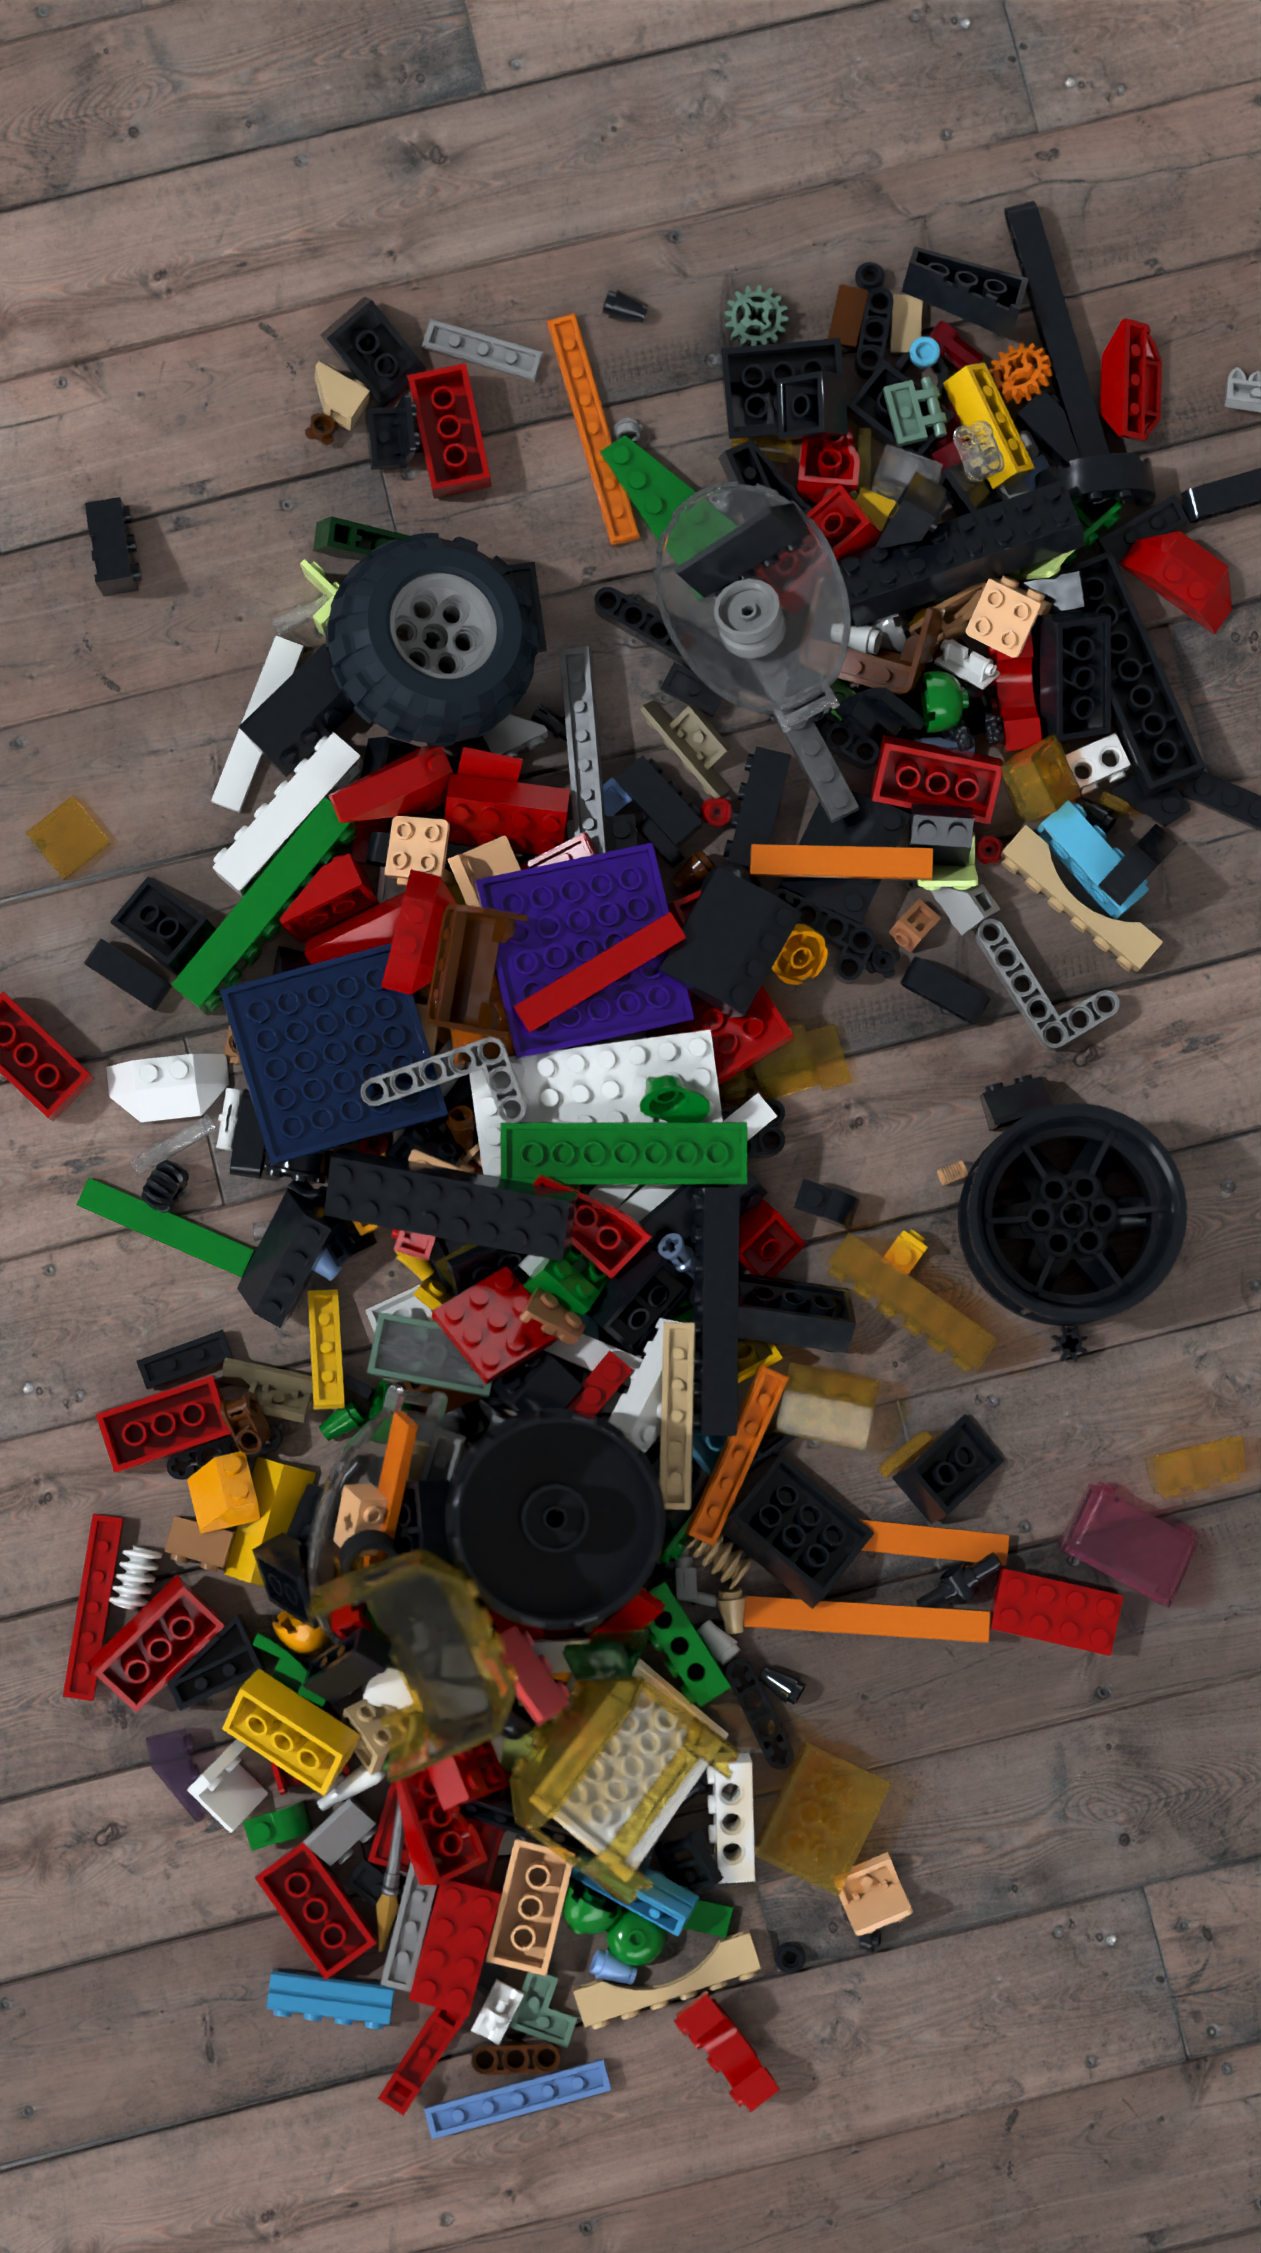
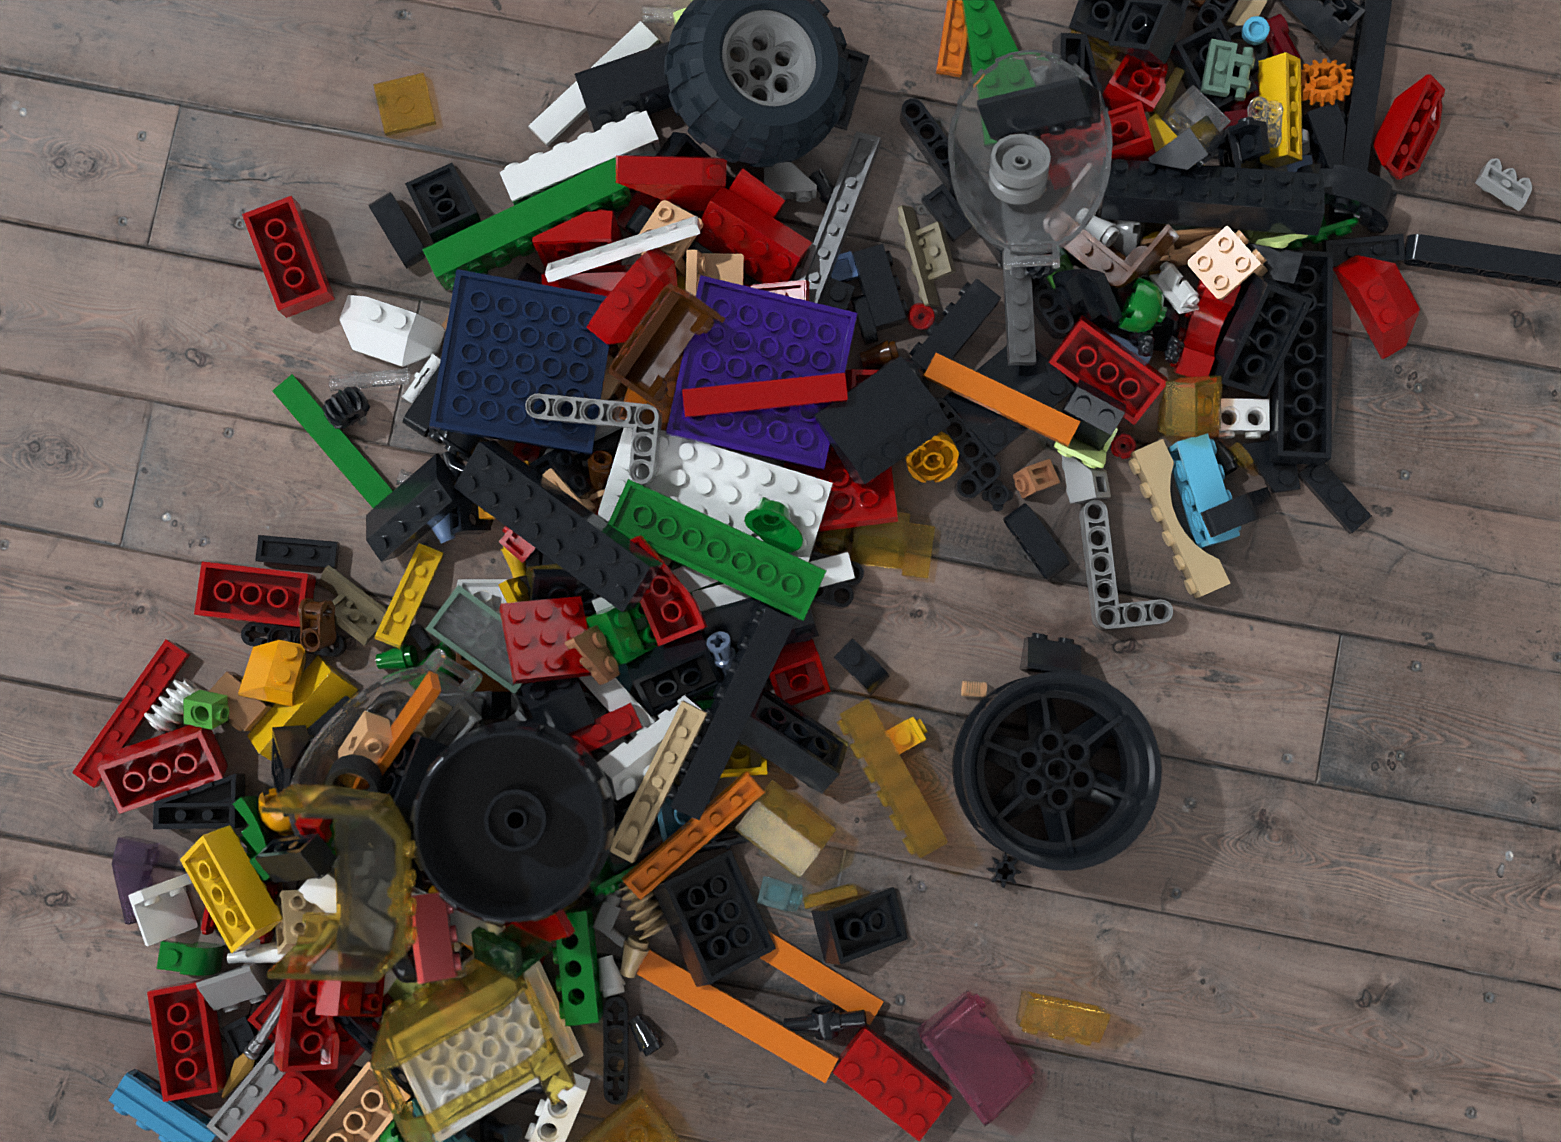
camera: 25 degrees right, 0 degrees up
(169, 1573) = (205, 709): none -> bright green brick
(380, 888) = (623, 249): none -> white tile
(852, 1476) = (780, 894): none -> clear light blue bracket
(973, 473) = (1252, 138): none -> black bracket

